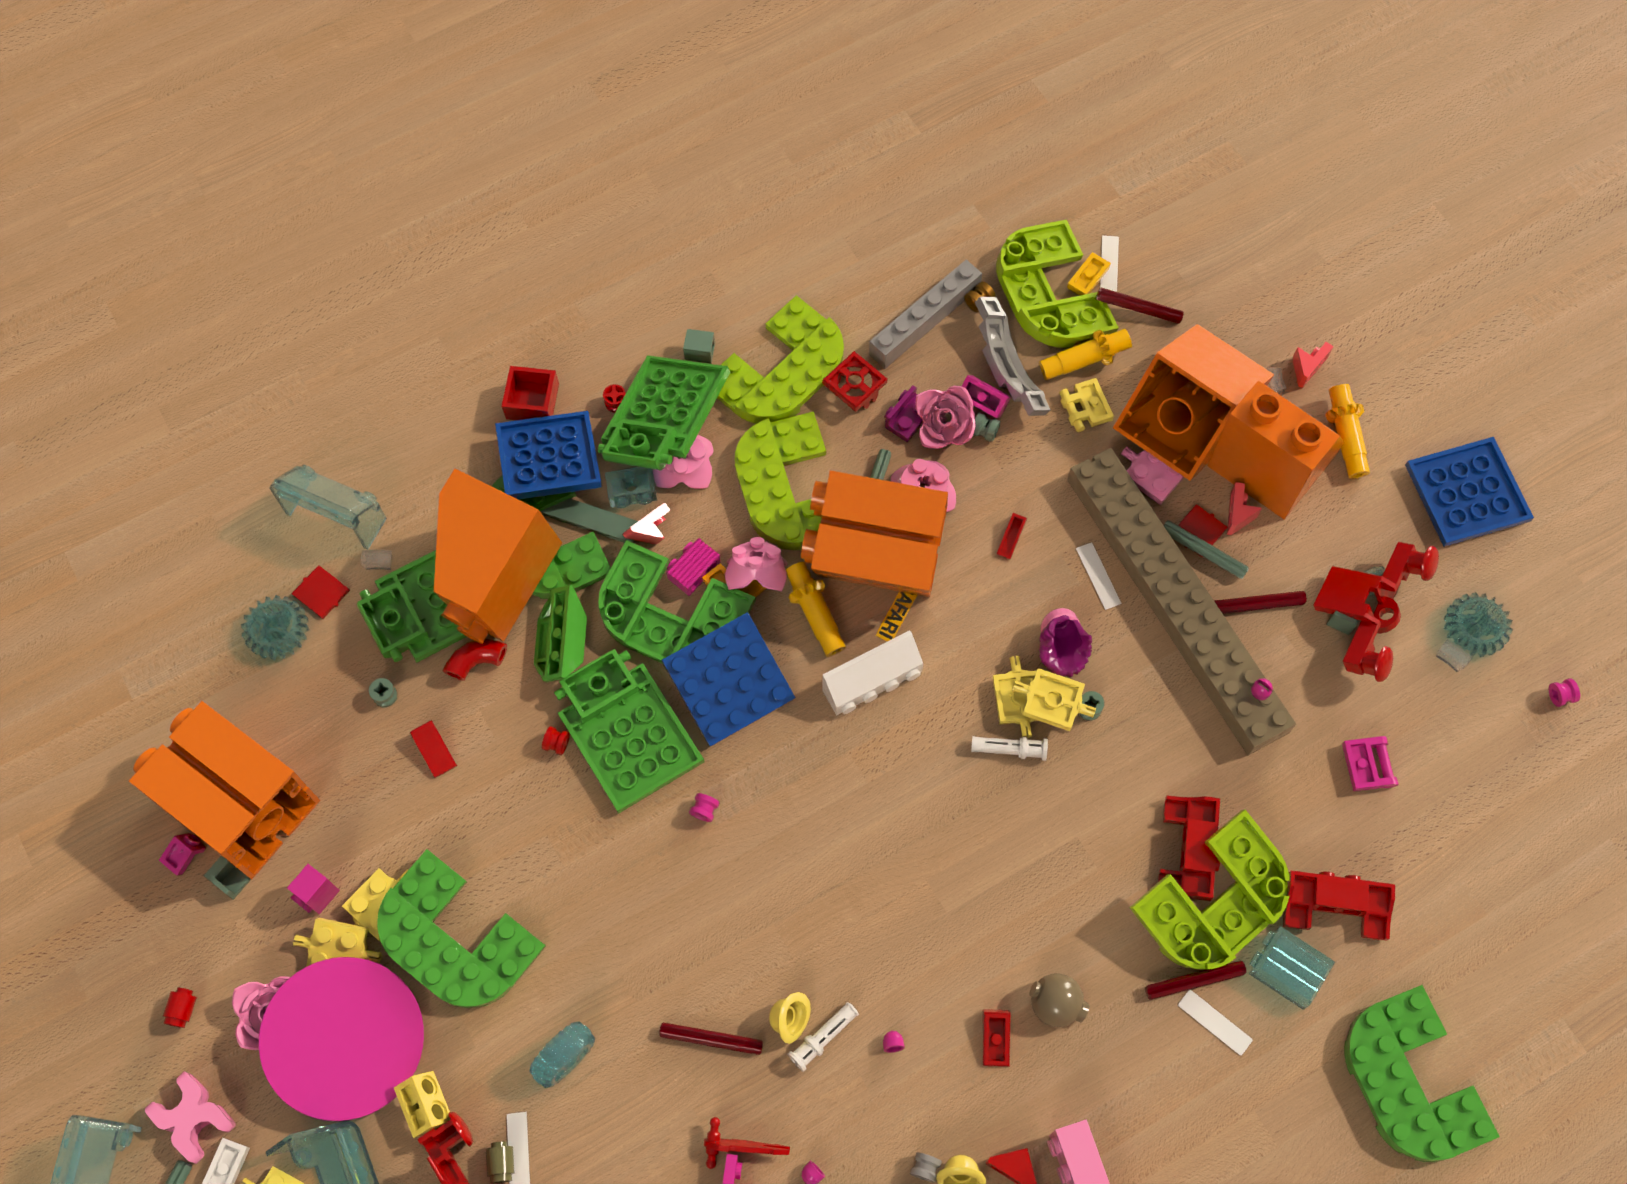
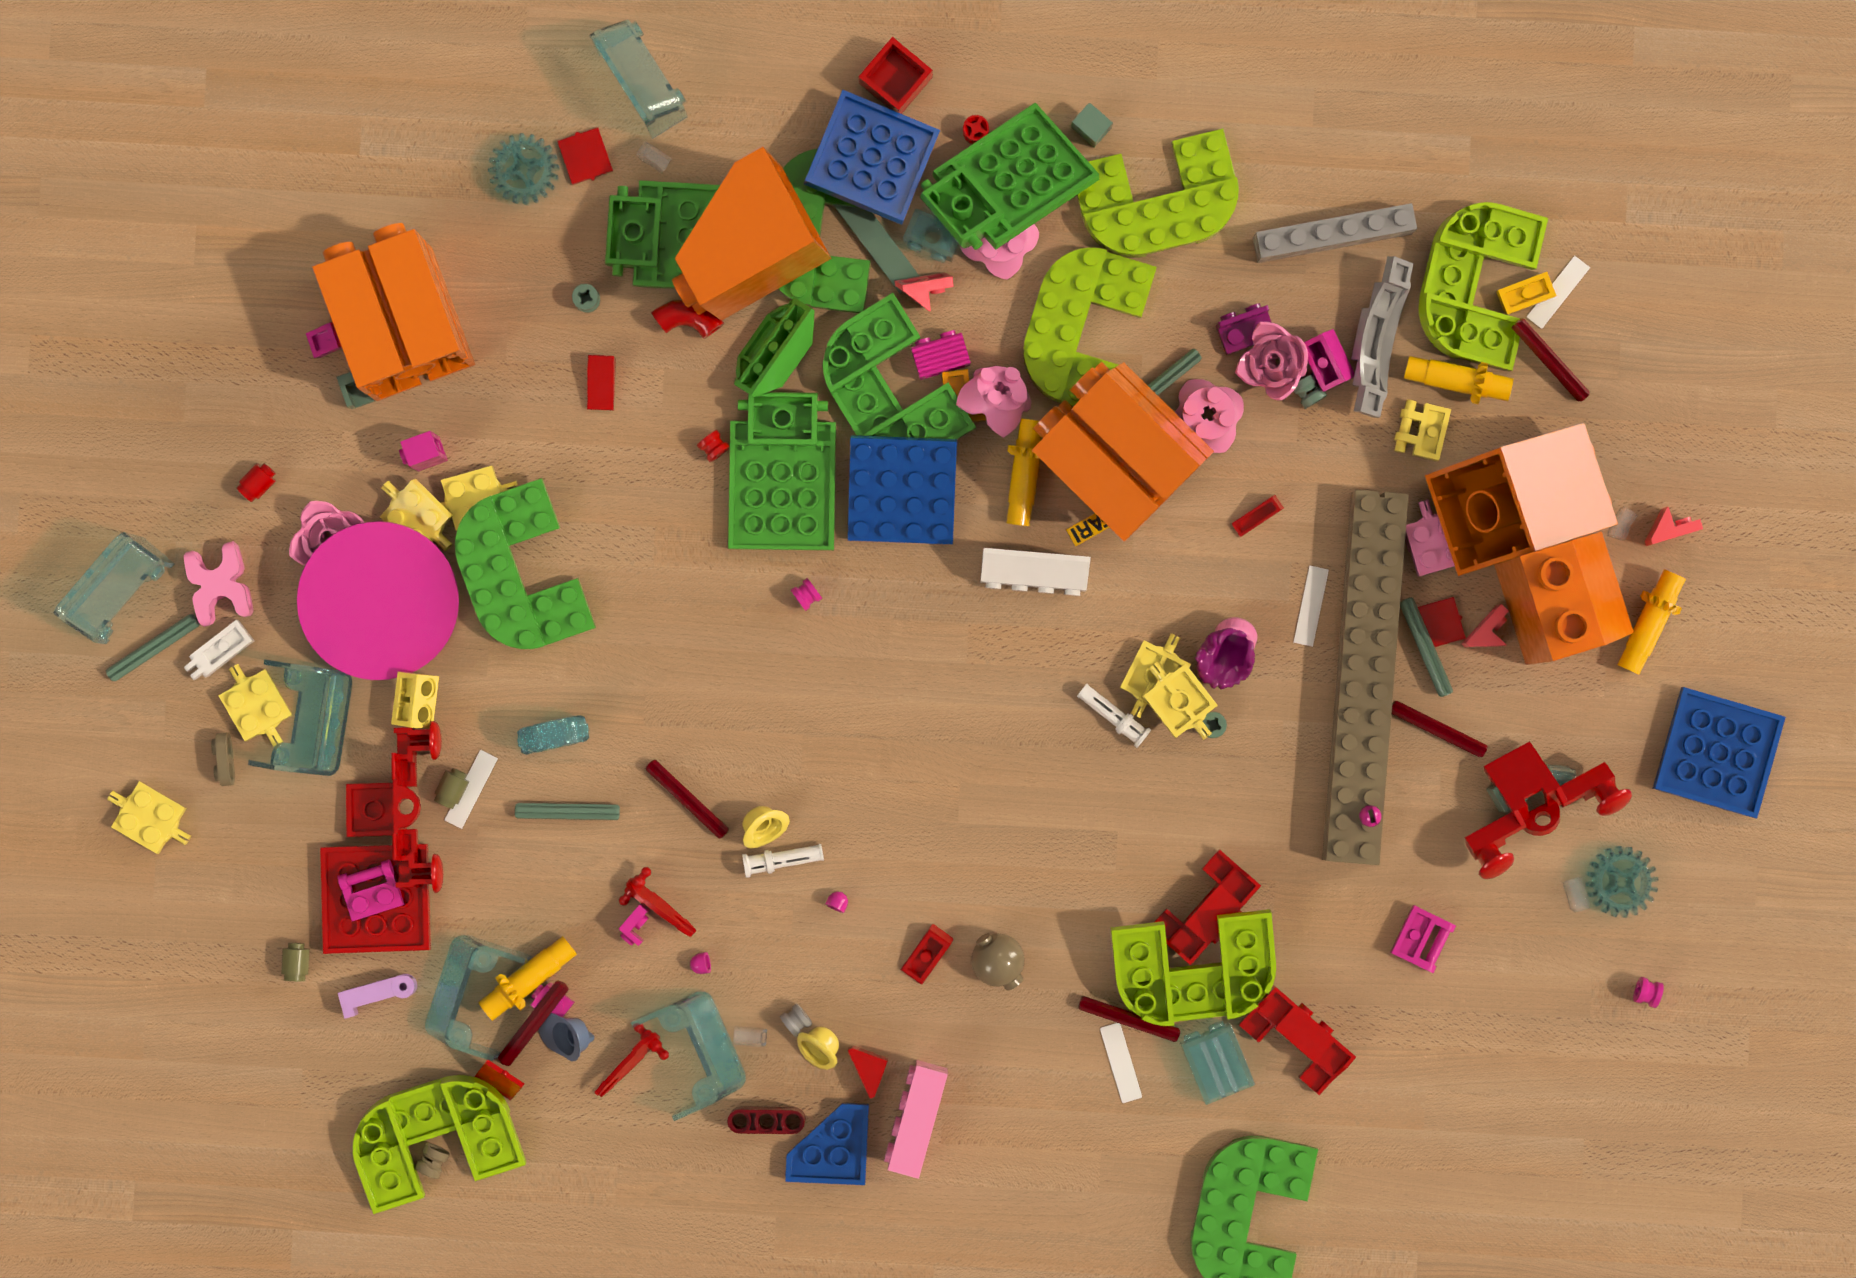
camera: 35 degrees right, 20 degrees up
(614, 1117) = (567, 811): none -> sand green axle
(855, 403) = (1199, 285): red piece -> none
(981, 290) = (1402, 247): pearl gold wheel -> none

